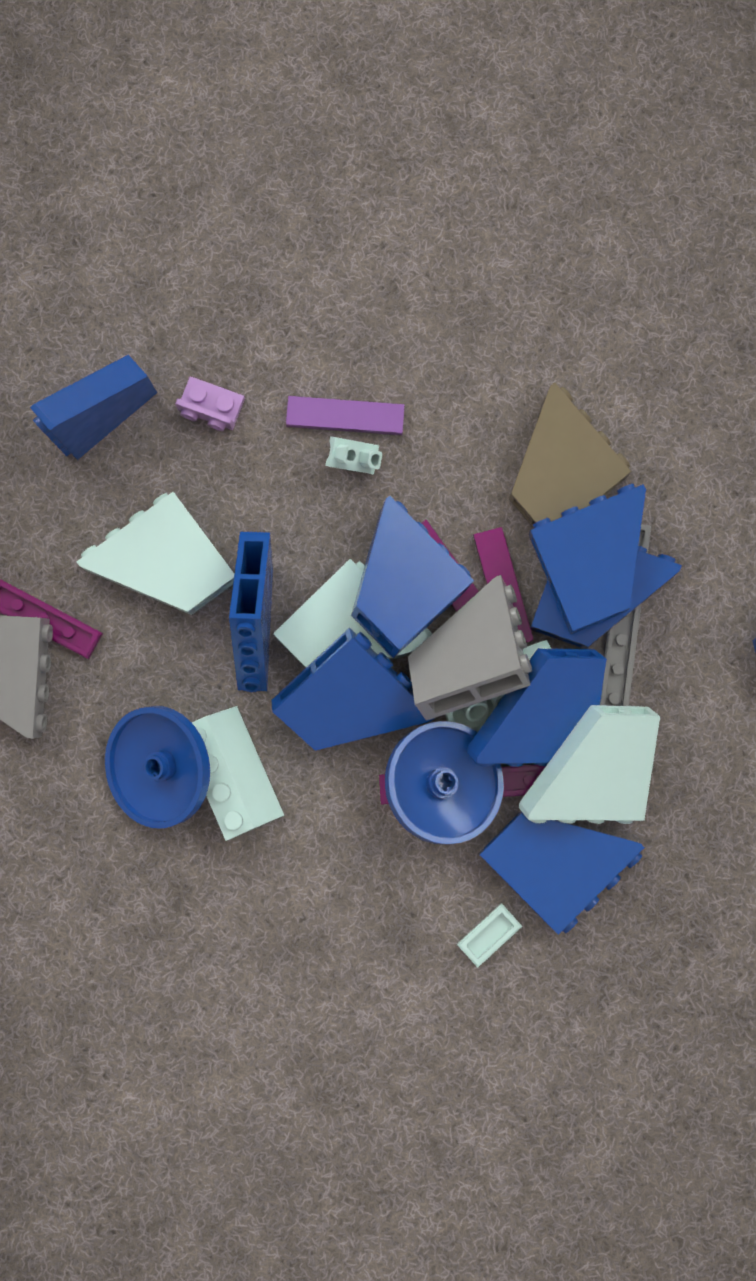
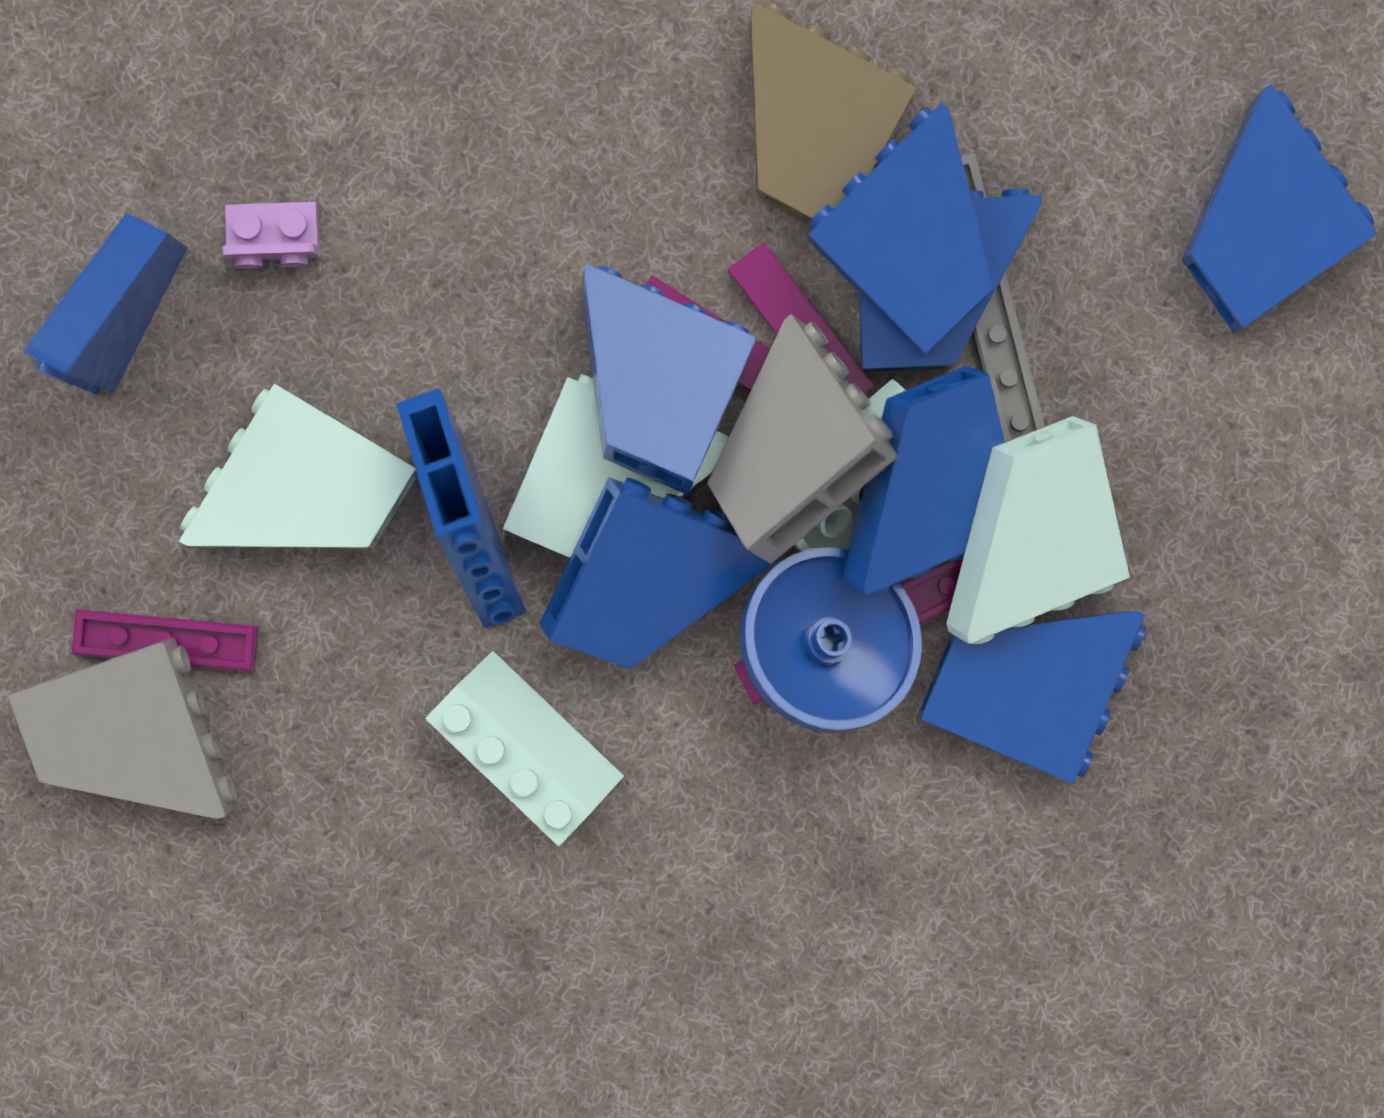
camera: 30 degrees left, 5 degrees up
(157, 766) = (419, 783): blue dish -> none
(345, 415) = (473, 170): medium lavender tile -> none
(353, 455) = (511, 225): light aqua hips -> none
(489, 935) = (977, 823): light aqua tile -> none

